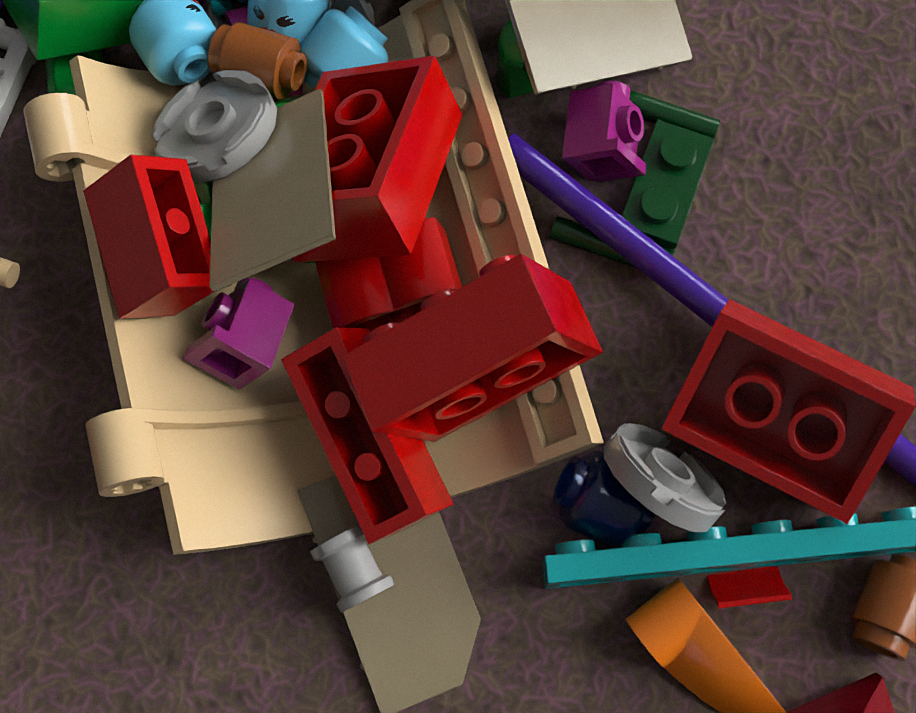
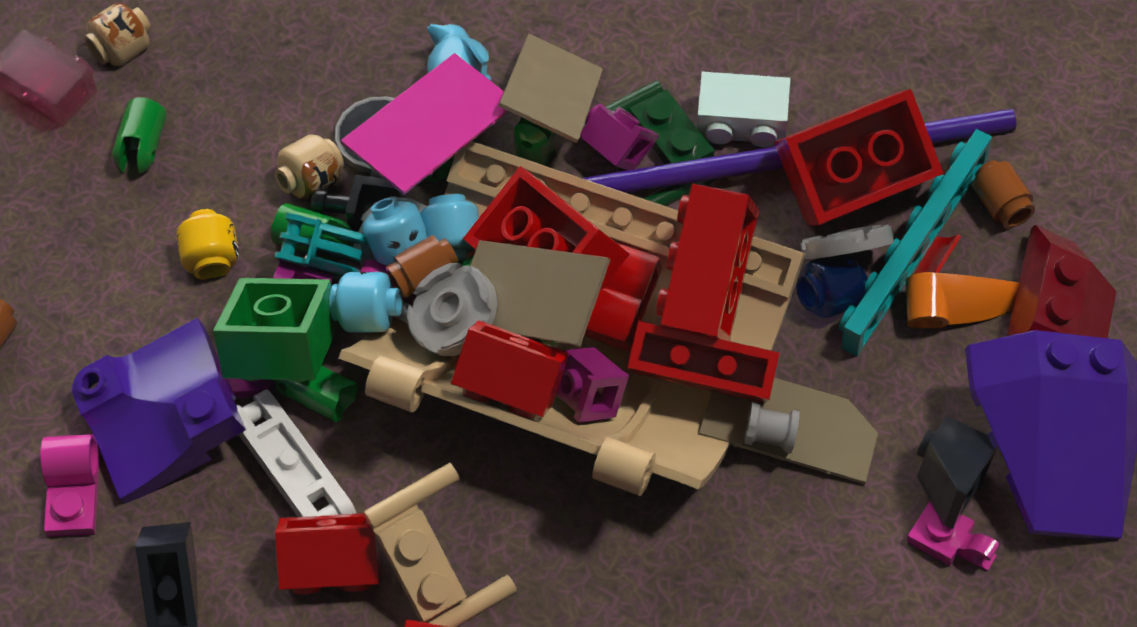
camera: 50 degrees left, 15 degrees down
(757, 234) = (743, 108): none -> light aqua brick

